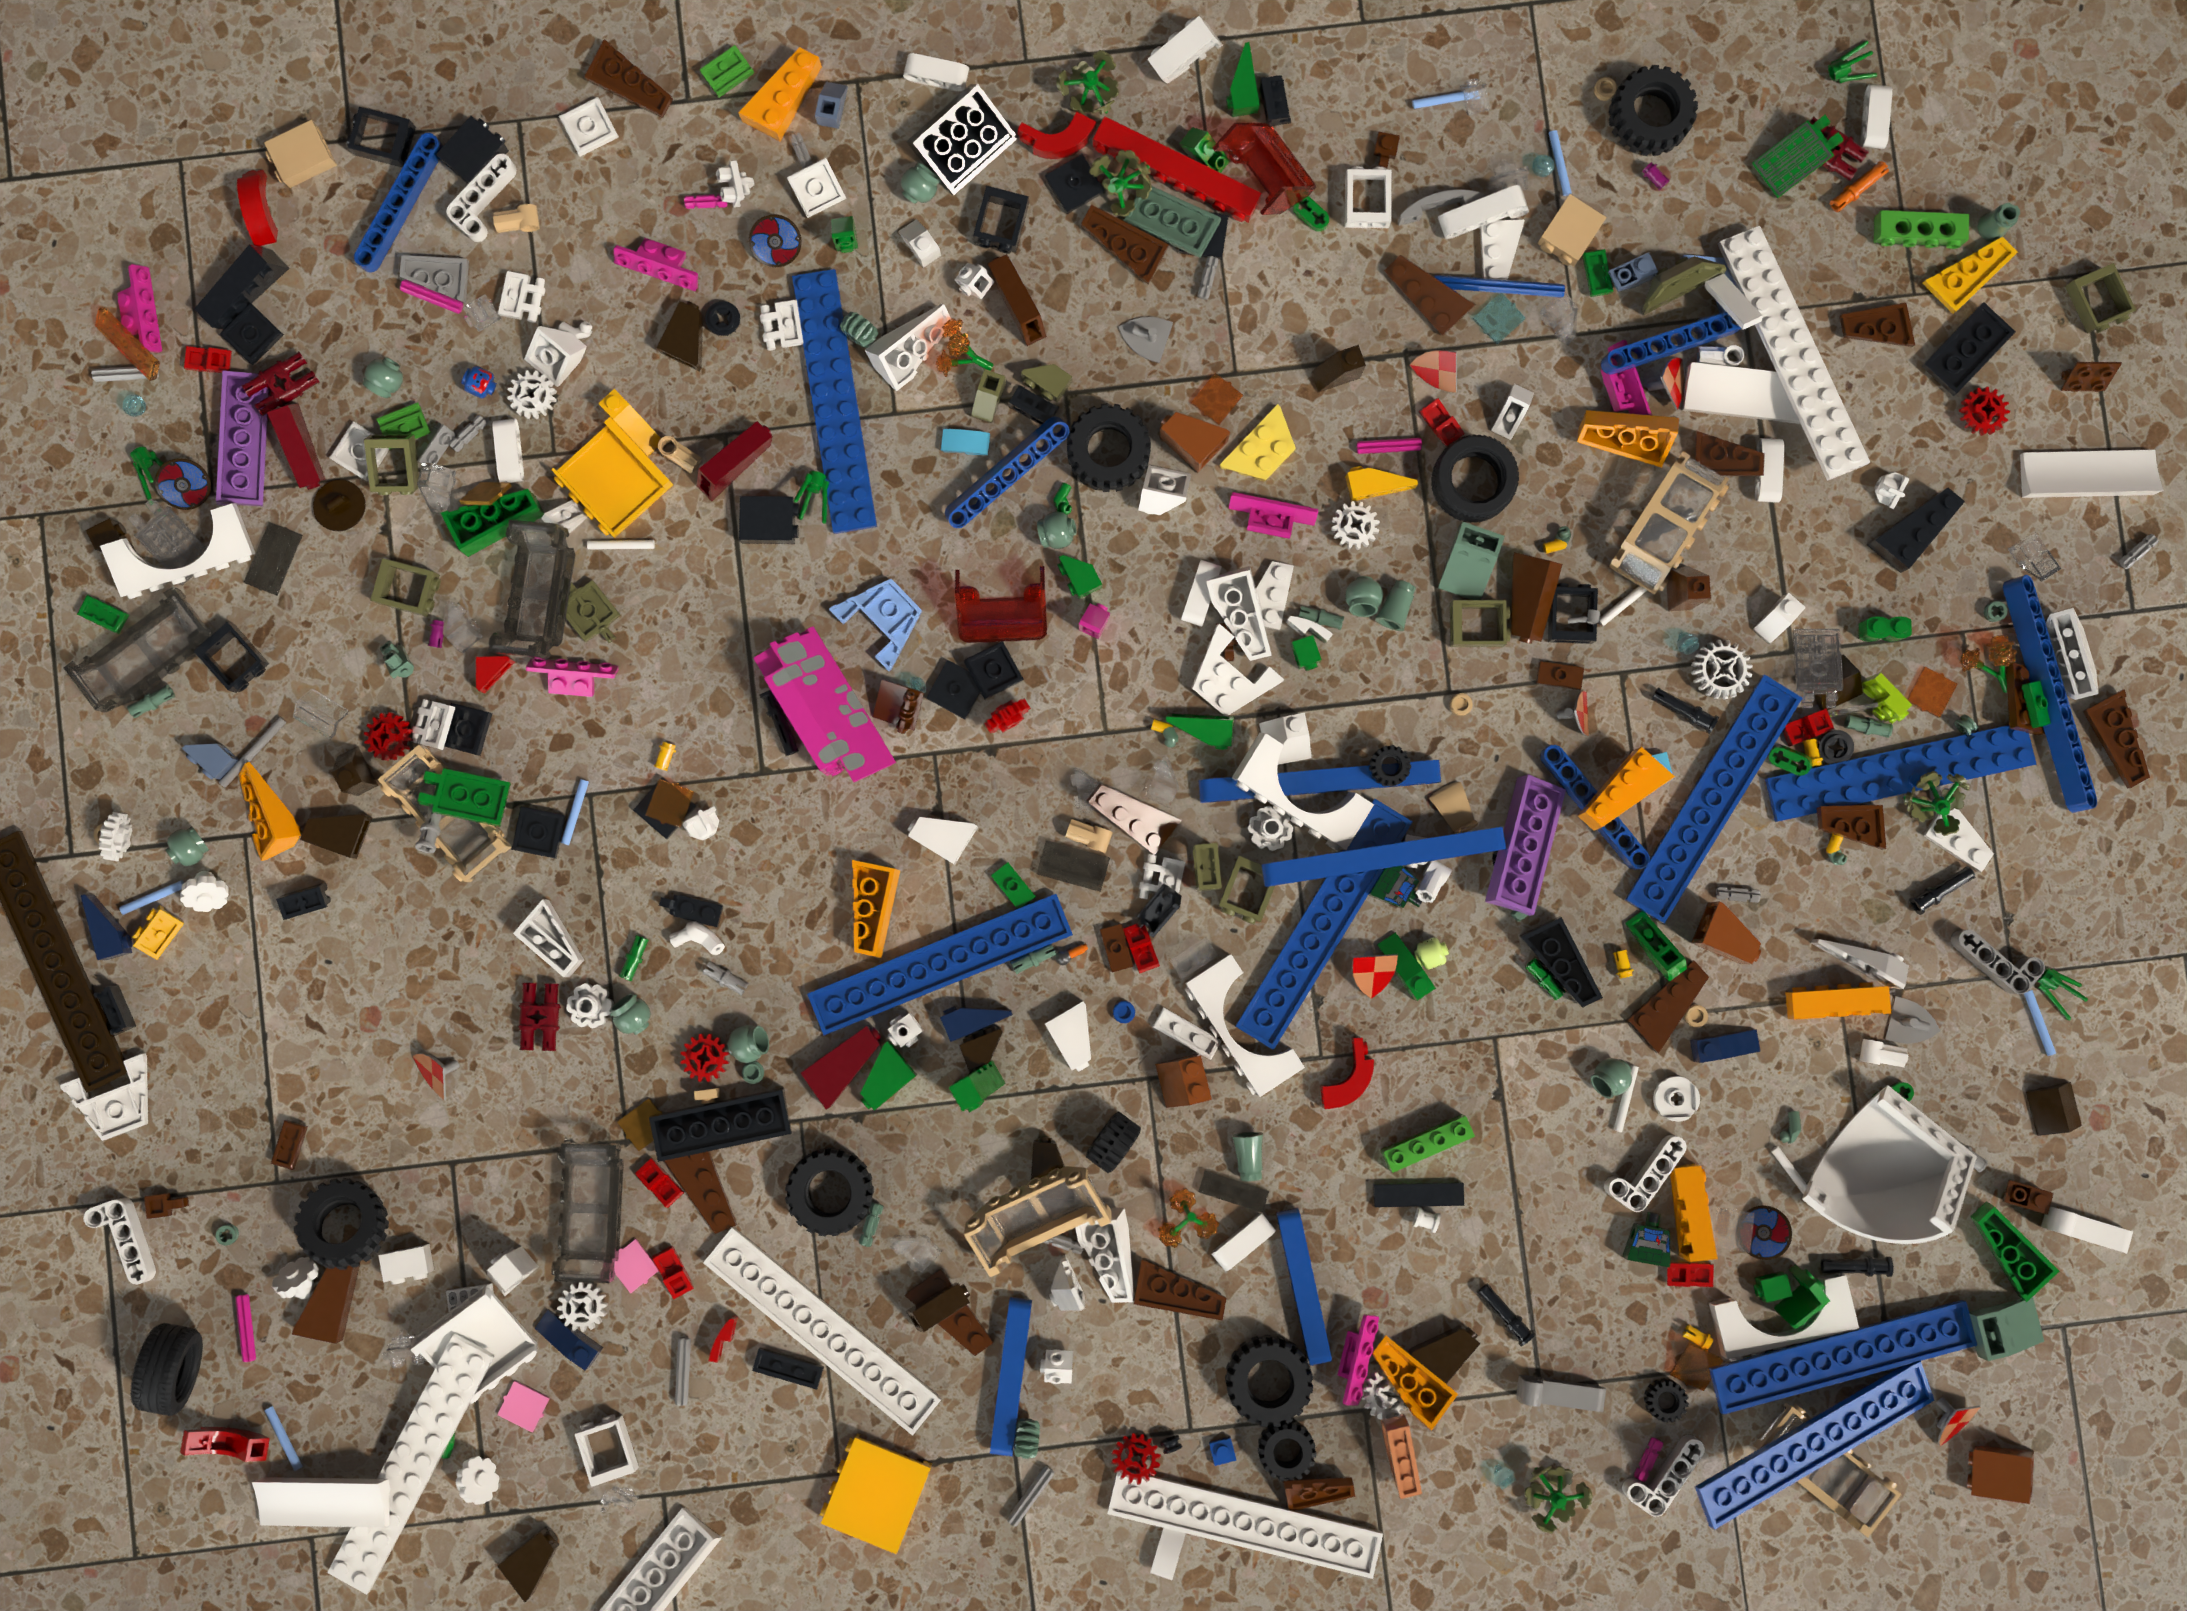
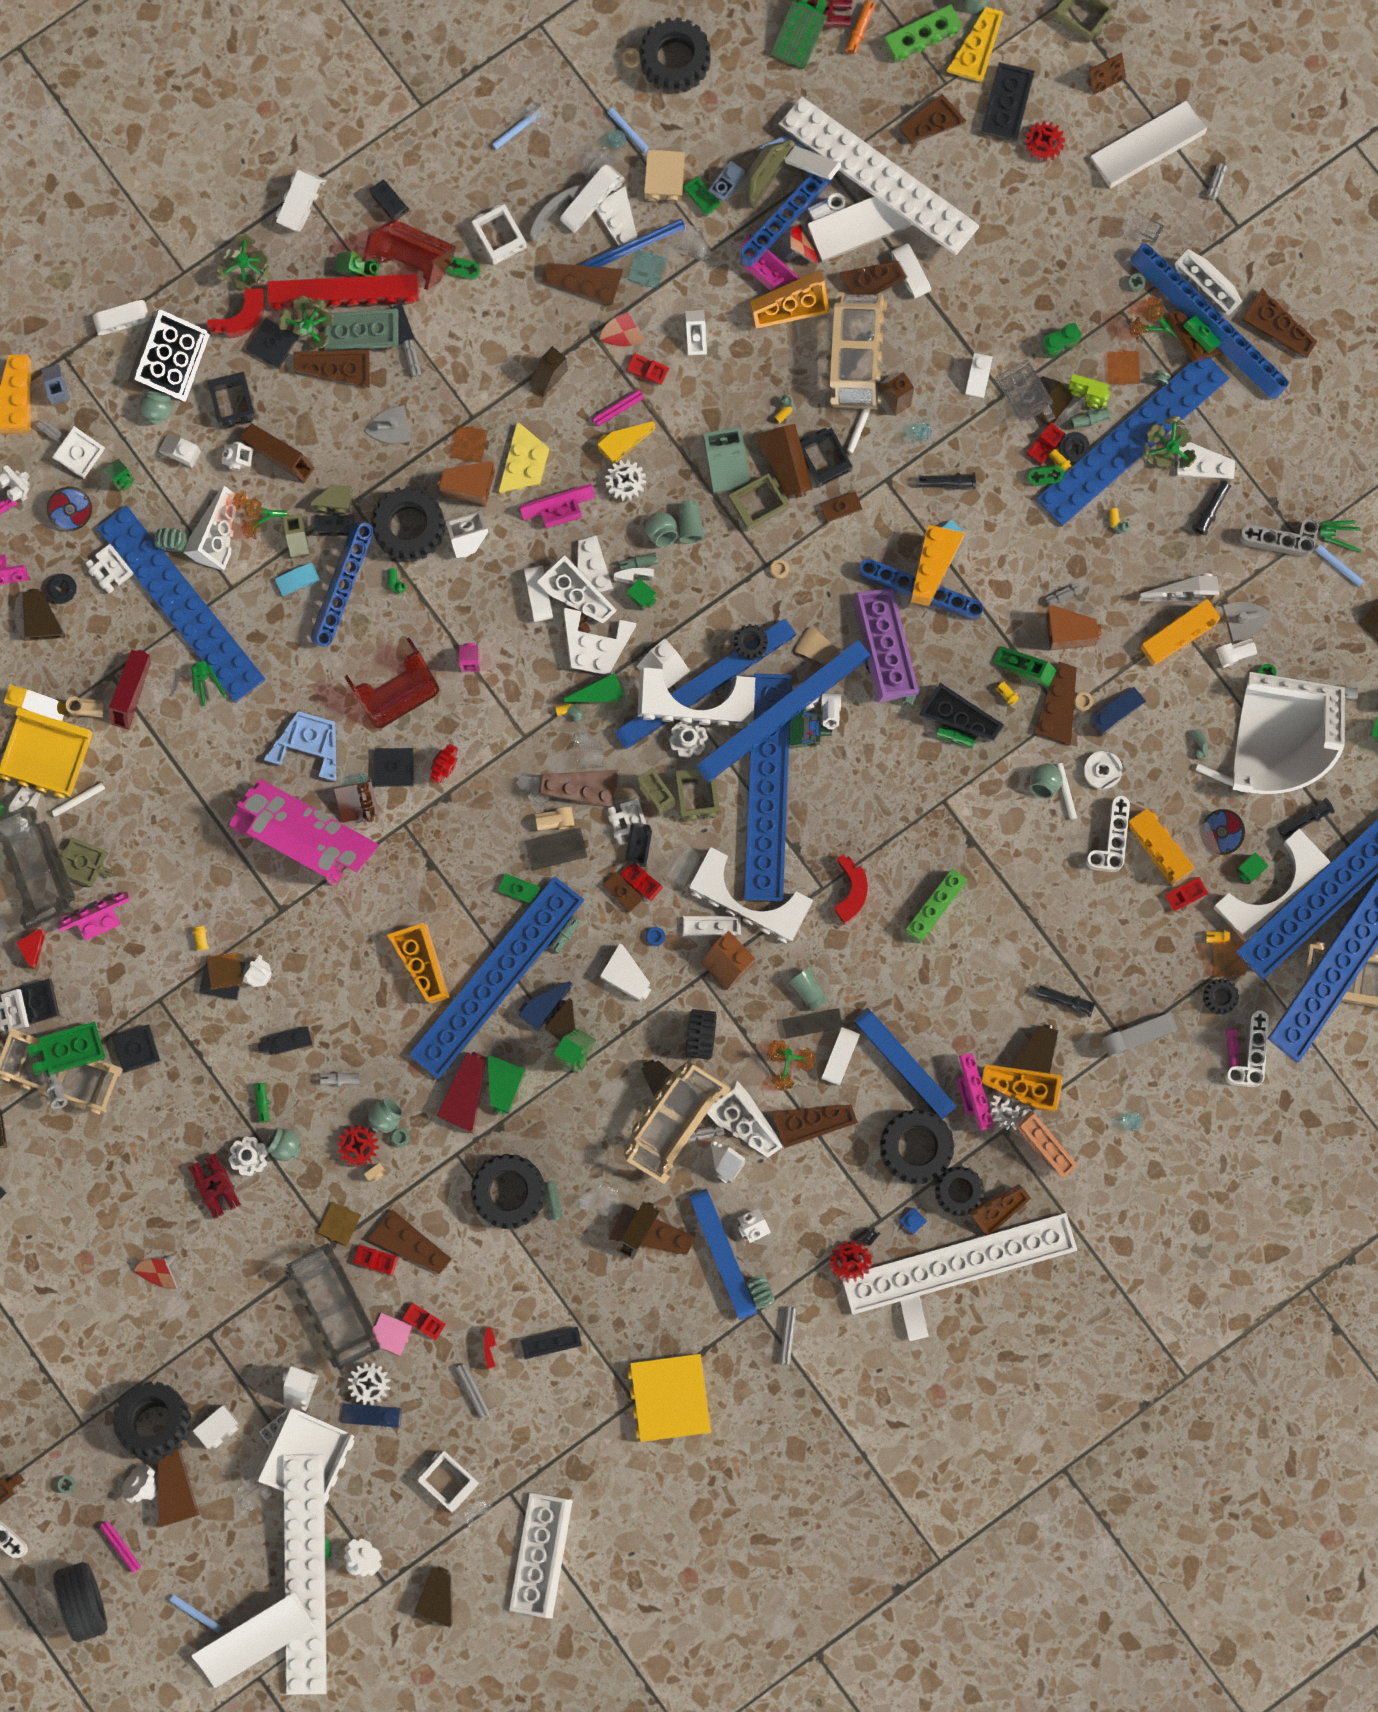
camera: 25 degrees left, 5 degrees down
(226, 1441) = (155, 1638): red arch -> none
(289, 1144) = (76, 1389): reddish brown plate -> none
(523, 1406) = (366, 1486): bright pink piece -> none
(549, 939) = (190, 1123): white wedge -> none
(575, 809) = (155, 1019): light blue bar -> none
(700, 934) = (299, 1056): white arm -> none
(720, 1124) = (398, 1188): black arch -> none
(768, 520) = (181, 719): black brick -> none
(780, 722) = (266, 856): black pin -> none
(822, 1330) = (561, 1300): white plate -> none
(913, 1030) = (491, 1037): white brick -> none
(942, 836) = (445, 881): white slope -> none
(993, 670) = (414, 736): black plate -> none
(1056, 530) = (403, 606): sand green piece -> none
(1064, 957) = (587, 920): piece -> none
(1081, 576) = (440, 630): green slope -> none
(1243, 92) = (361, 206): green slope -> none
(1373, 972) = (824, 801): shield -> none
(1386, 148) = (492, 189): reddish brown plate -> none
(1407, 967) = (847, 785): green slope -> none
(1418, 1194) = (952, 948): black tile -> none
(1426, 1220) = (968, 963): white bush -> none
(1431, 953) = (860, 764): yellowish green head -> none
(1497, 456) = (702, 371): black tyre -> none
(1561, 1505) = (1187, 1118): olive plant -> none
(1579, 712) = (869, 525): shield -> none
(1592, 618) = (839, 451): light grey hand -> none
(1649, 1242) = (1142, 887): torso -> none
(1655, 176) = (704, 101): magenta pin -> none
(1713, 799) = (1005, 535): blue plate -> none
(1727, 675) = (964, 439): white gear -> none
(1804, 975) = (1147, 625): clear piece -> none
(1806, 1299) = (1280, 863): green bracket -> none
(1855, 823) = (1119, 494): reddish brown wing -> none
(1890, 488) = (1007, 235): white piece -> none
(1913, 534) = (1041, 262): black wedge -> none

